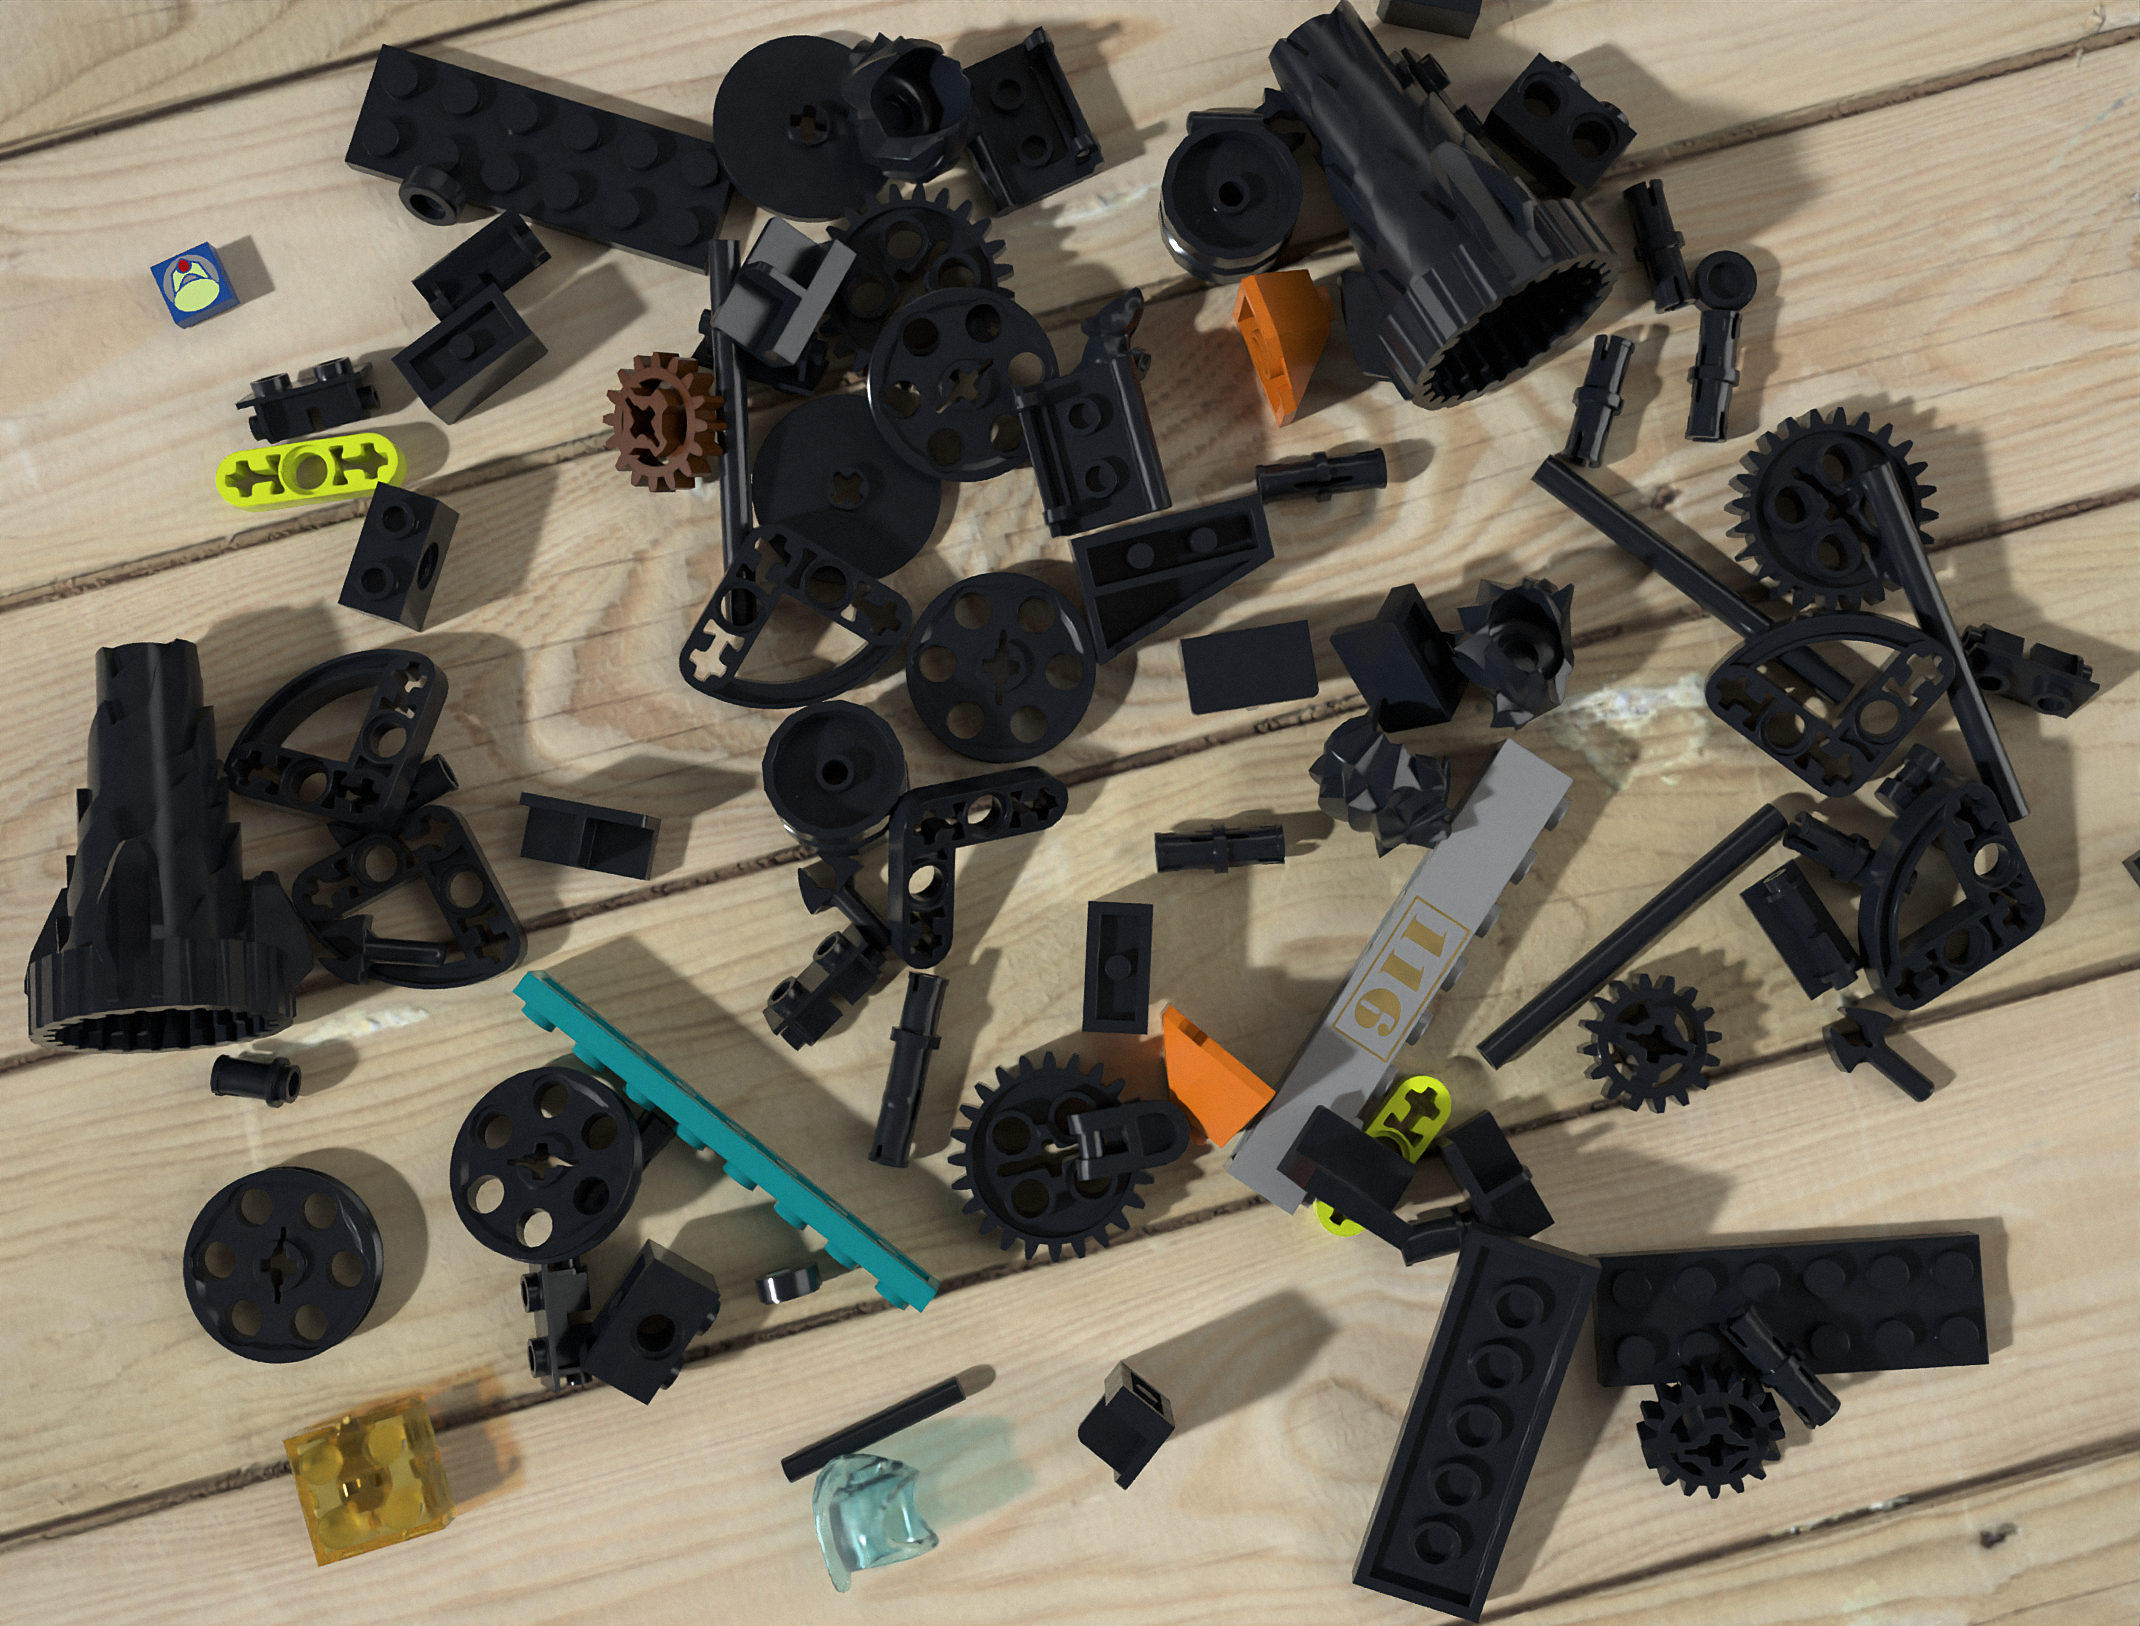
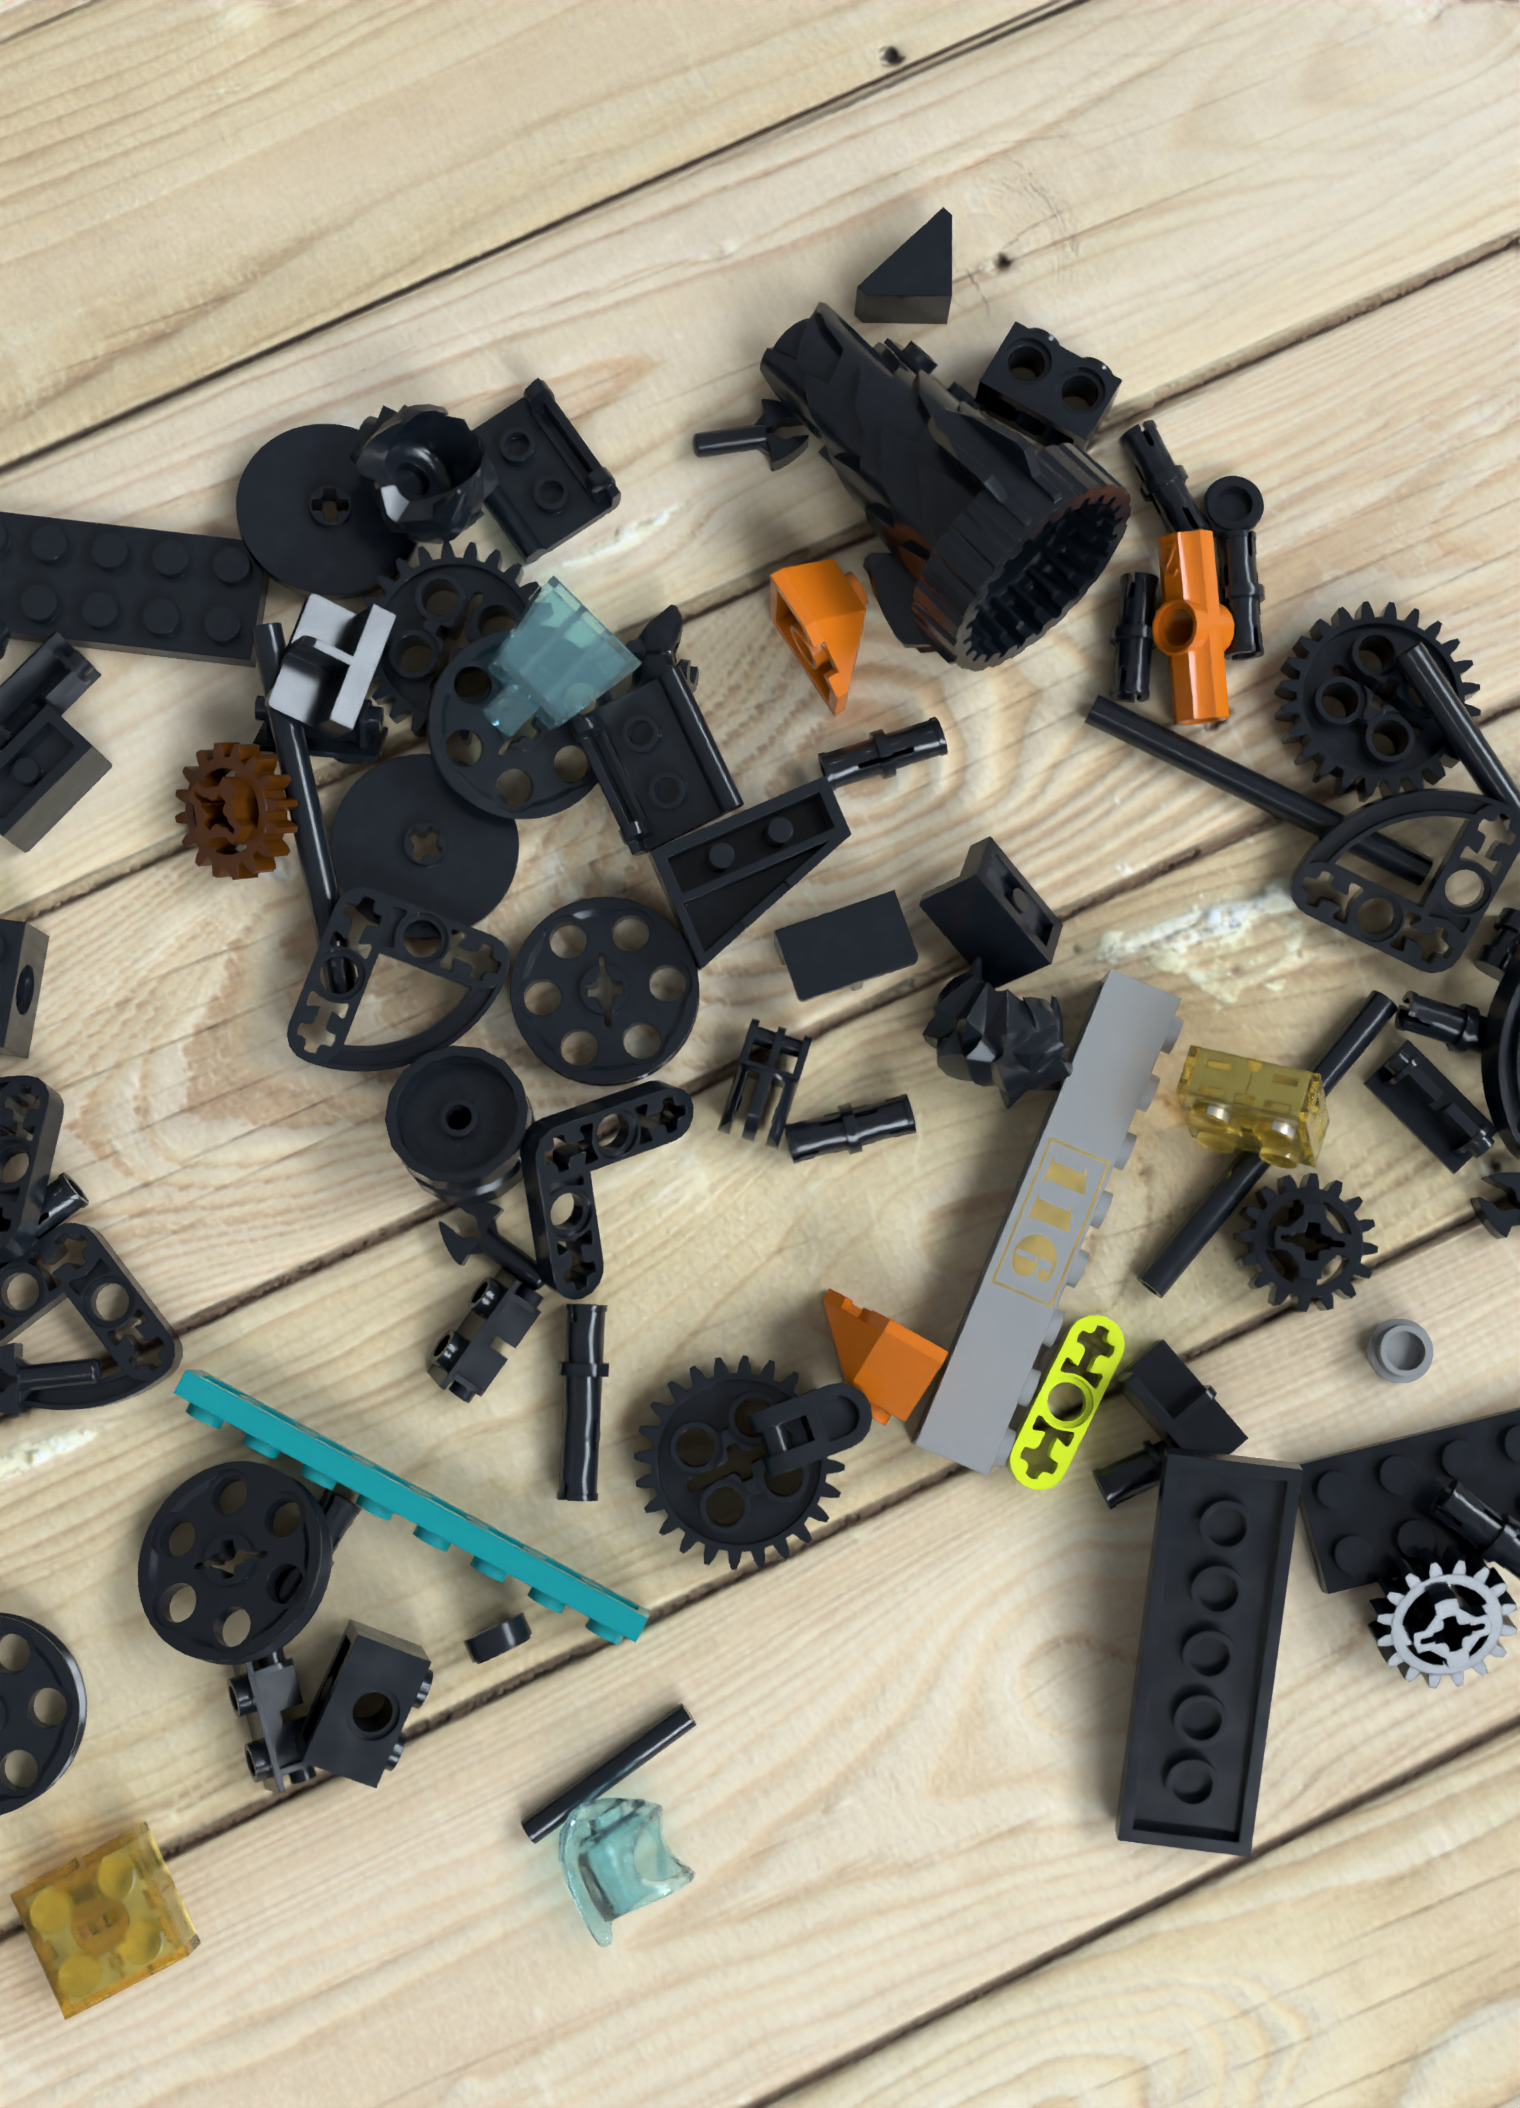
camera: 15 degrees left, 5 degrees down
(589, 836) = (226, 1226): black panel -> none
(1008, 330) = (554, 662): none -> clear light blue torso
(1117, 967) = (770, 1260): black panel -> none
(1127, 1424) = (861, 1718): black panel -> none
(1163, 751) = (766, 1076): none -> black arm
(1263, 197) = (746, 508): black wheel -> none
(1351, 1173) = (1038, 1422): black panel -> none
(1516, 647) = (1101, 881): black hair -> none
(1624, 903) = (1253, 1107): none -> clear yellow piece
(1663, 377) = (1193, 627): none -> orange piece
(1721, 1164) = (1400, 1351): none -> light grey plate

